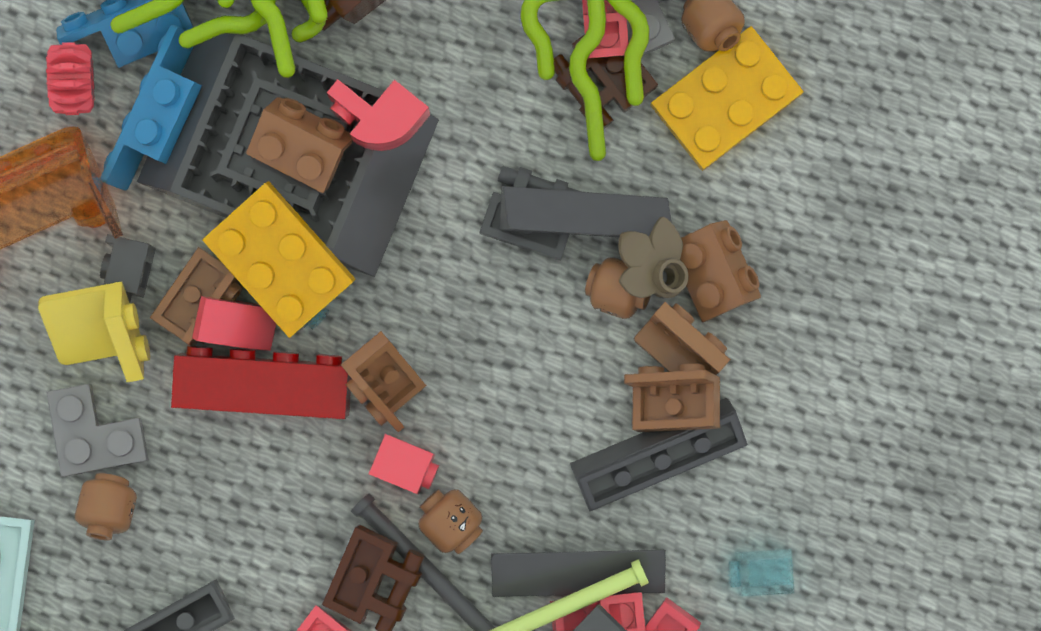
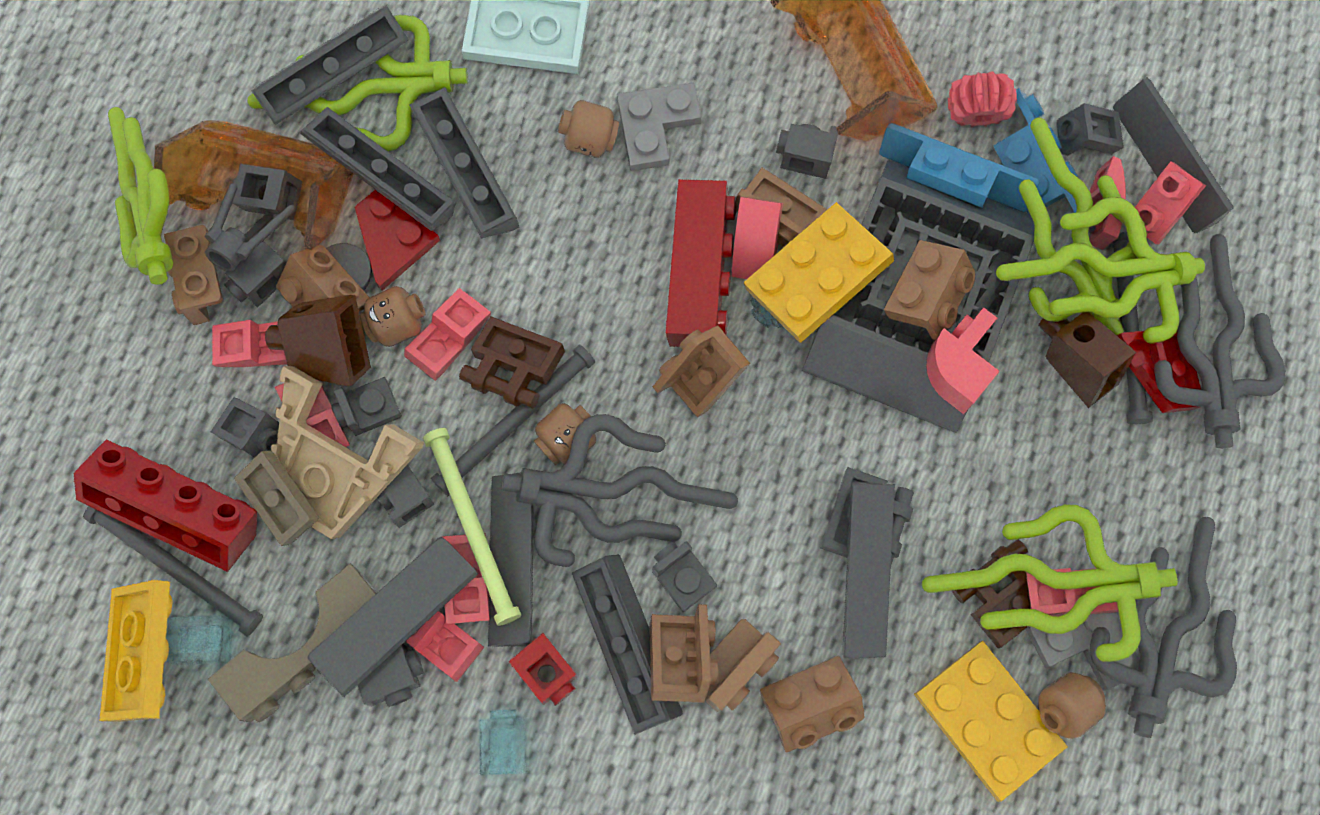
camera: 85 degrees right, 10 degrees down
(96, 326) = (753, 119): light yellow bracket -> none
(404, 465) = (621, 390): coral brick -> none
(511, 526) = (555, 491): none -> dark grey plant
(592, 398) = (682, 575): none -> dark grey bracket
(608, 294) = (794, 602): medium nougat head -> none
(648, 259) = (824, 628): dark tan plate -> none
(688, 552) = (532, 659): none -> red brick

